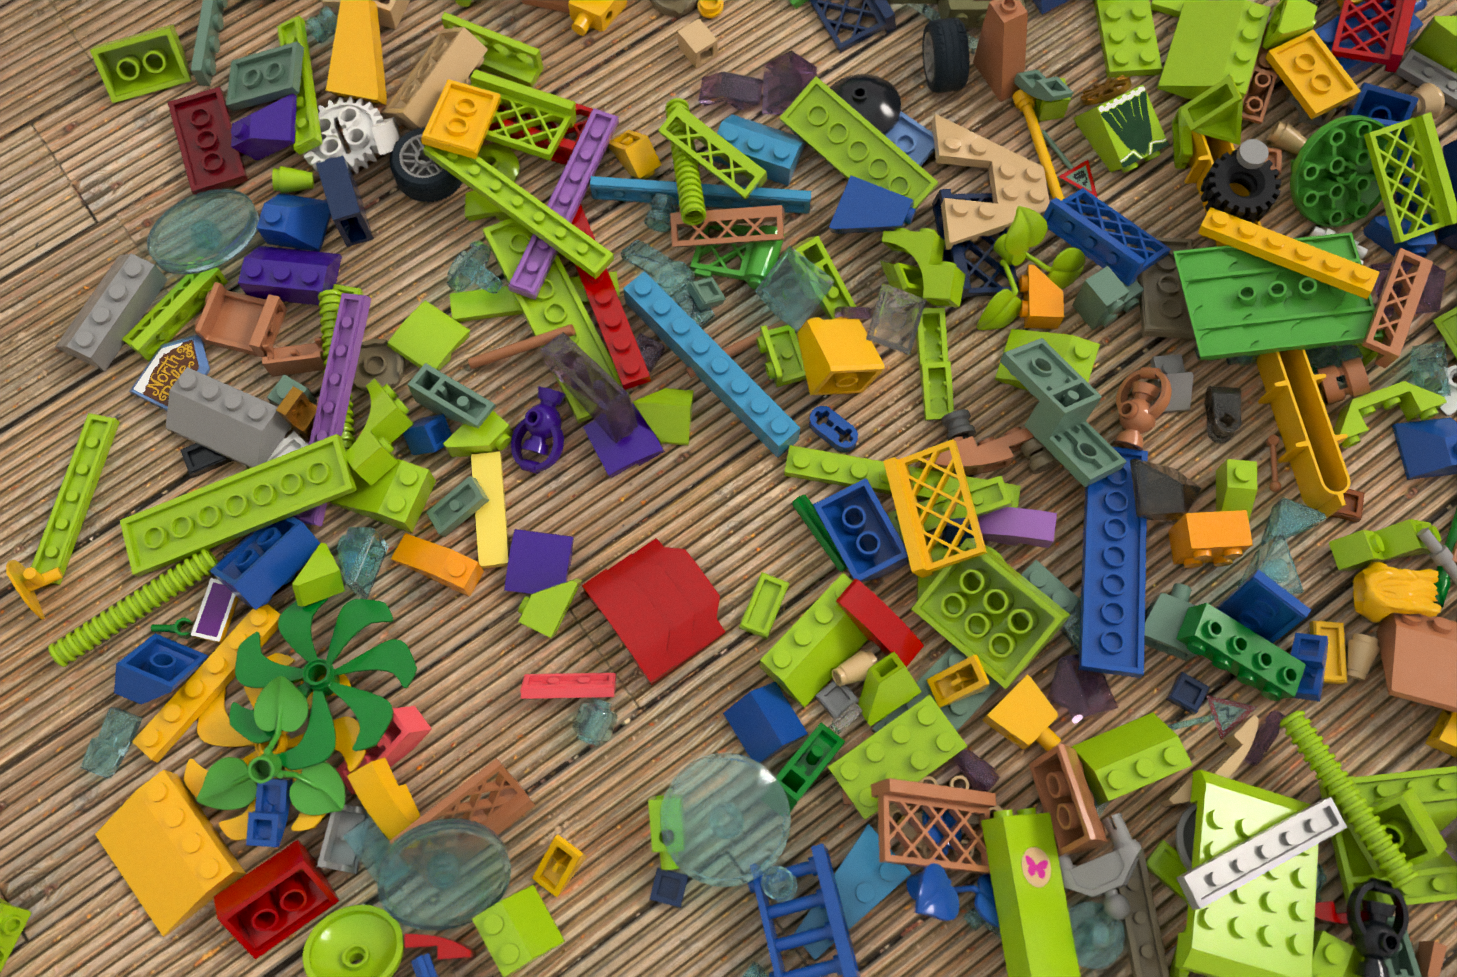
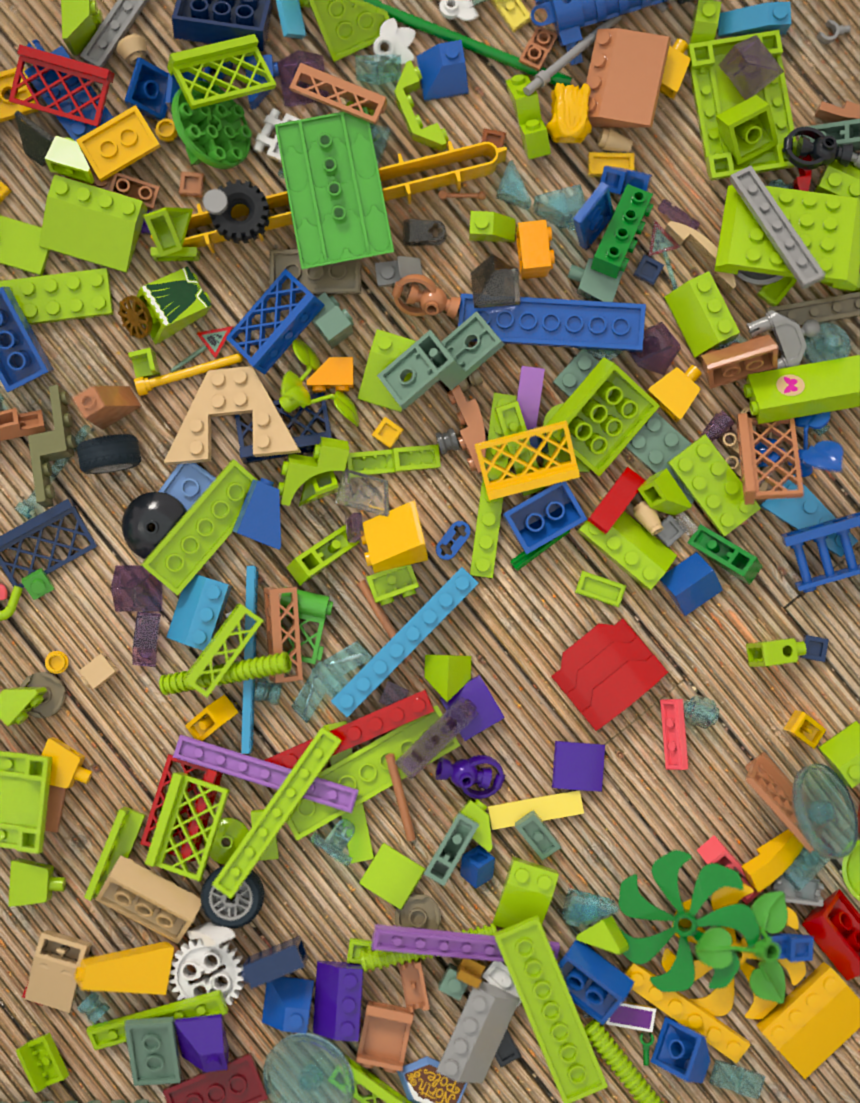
camera: 90 degrees left, 15 degrees up
(291, 179) = (250, 1013): lime cone -> none
(387, 420) = (471, 898): lime arch -> none
(438, 563) = (583, 846): light orange slope -> none
(461, 119) = (199, 869): yellow tile -> none
(548, 607) = (615, 754): lime slope -> none
(706, 293) = (339, 649): sand green tile -> none
(725, 819) = (774, 609): clear light blue dish -> none
(773, 882) = (816, 571): clear light blue wheel -> none
(794, 288) = (340, 575): clear light blue slope -> none
(958, 681) = (658, 441): yellow slope -> none
(969, 361) = (387, 432): none -> yellow tile
(1042, 88) = (139, 372): sand green slope -> none
(1286, 137) = (171, 166): tan cone -> none
(1289, 253) = (300, 178): yellow plate -> none
(1349, 799) = (728, 162): lime piece -> none
(1354, 378) = (392, 130): nougat wheel -> none

